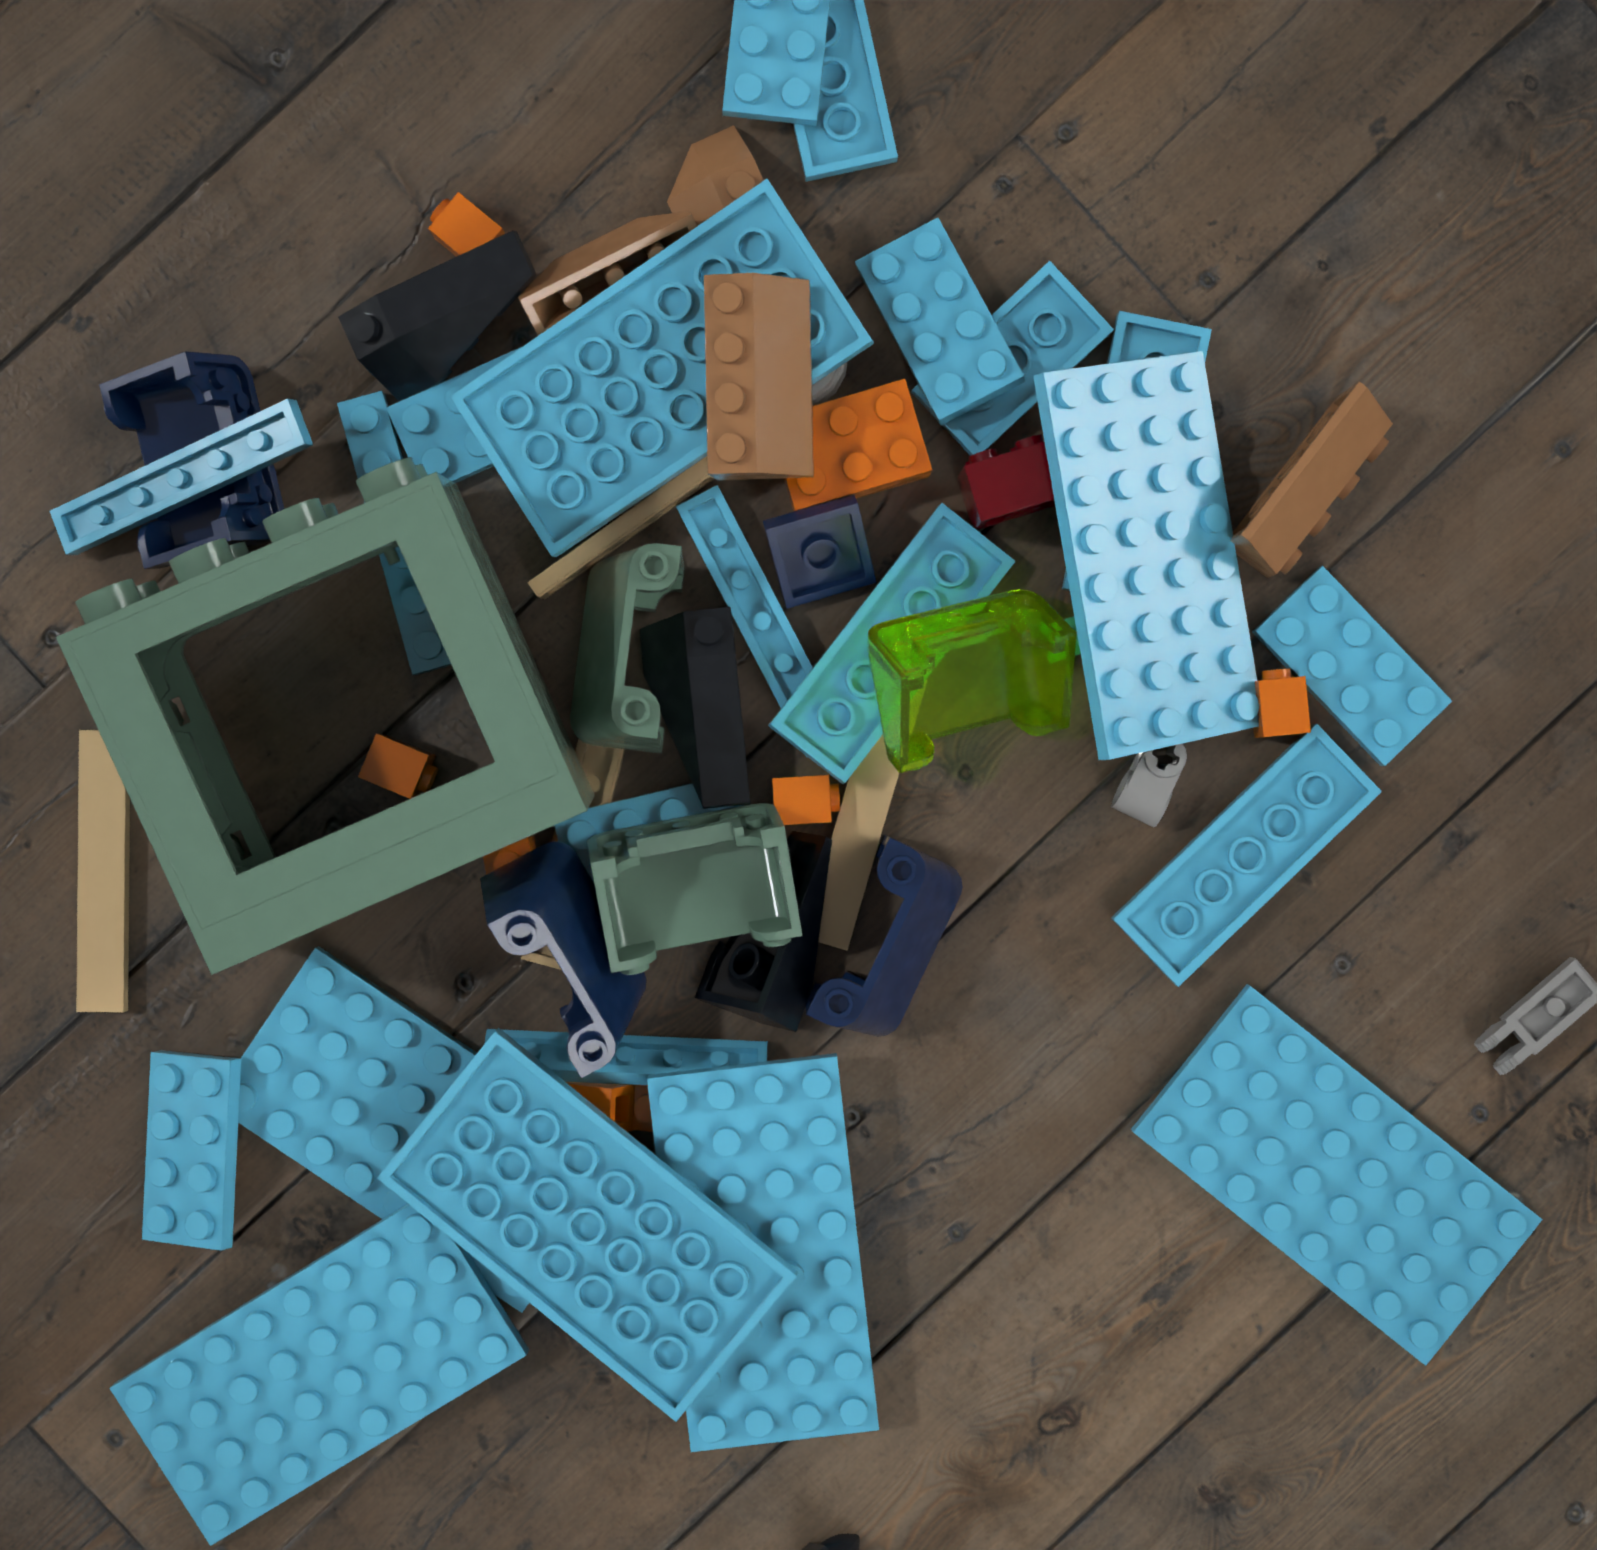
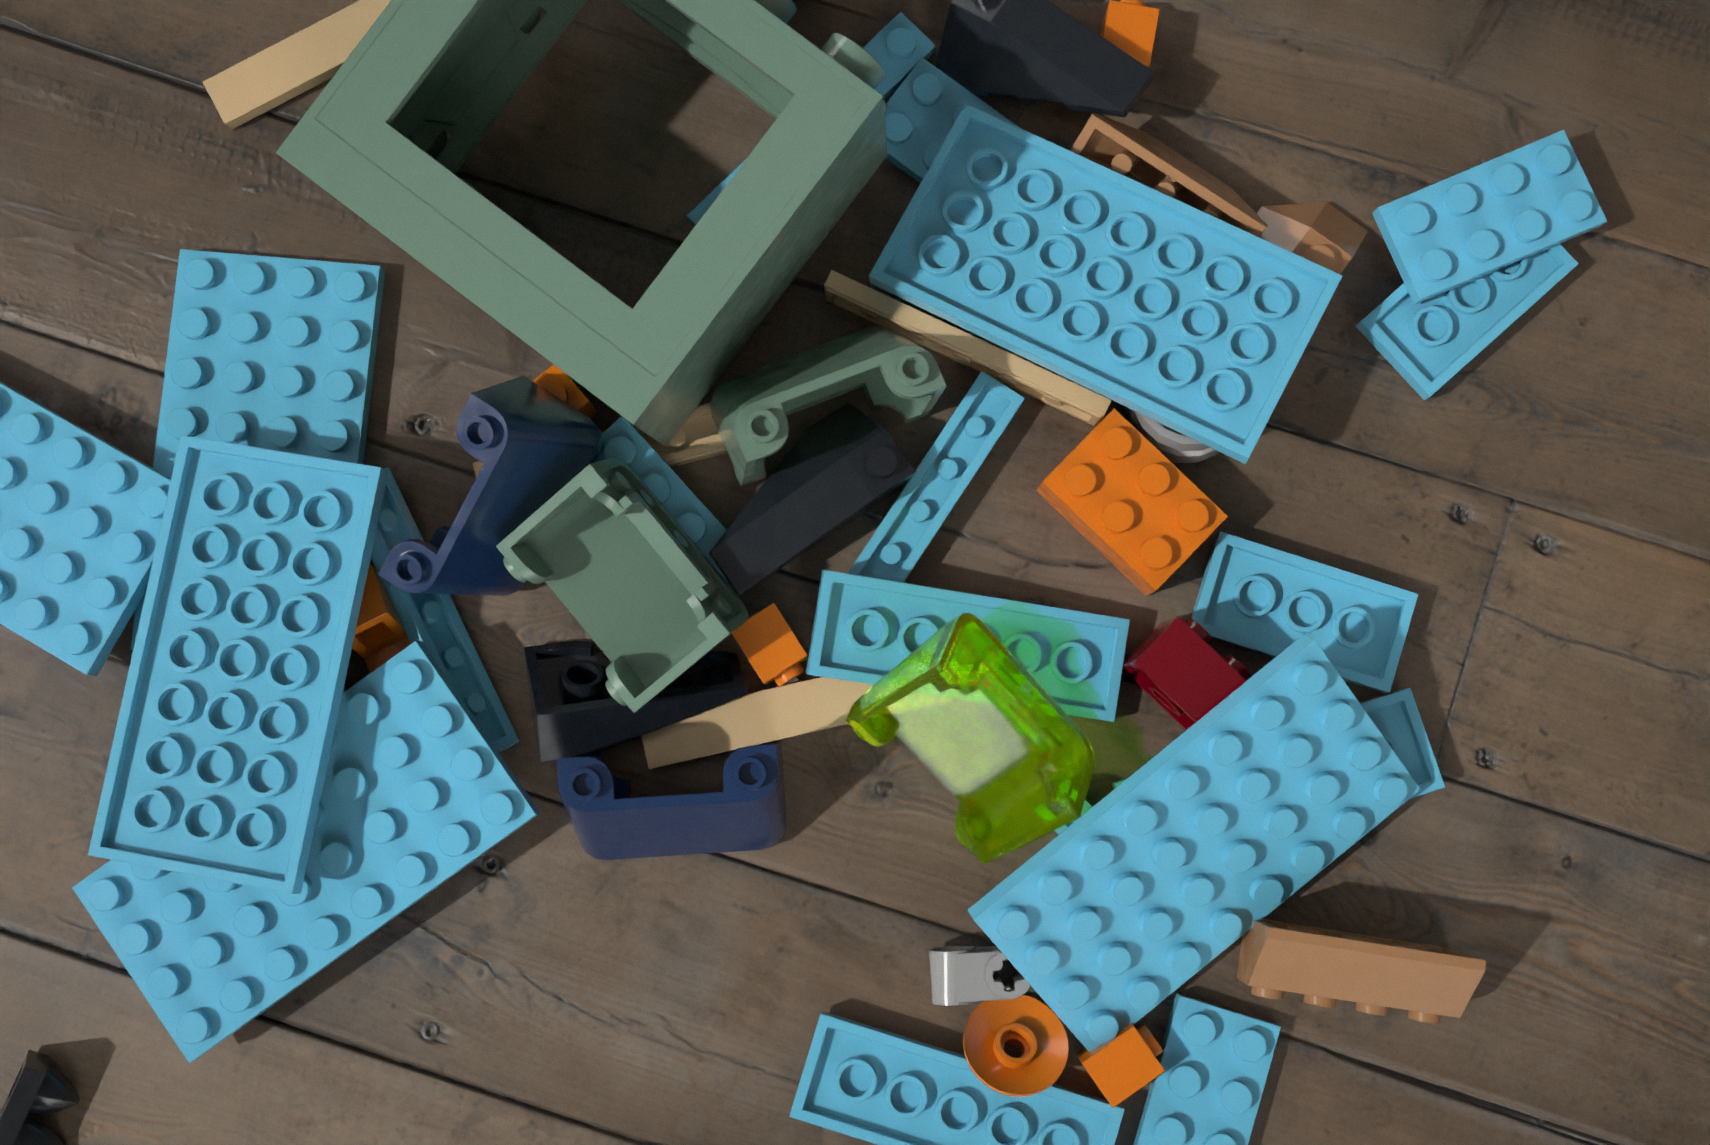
camera: 60 degrees right, 5 degrees down
(191, 1149) = (125, 255): medium azure plate -> none
(398, 766) = (593, 244): orange brick -> none
(758, 376) = (1150, 368): medium nougat slope -> none
(820, 551) = (1017, 528): dark blue plate -> none
(939, 321) = (1299, 522): medium azure plate -> none
(1212, 763) = (1025, 1025): none -> orange dish

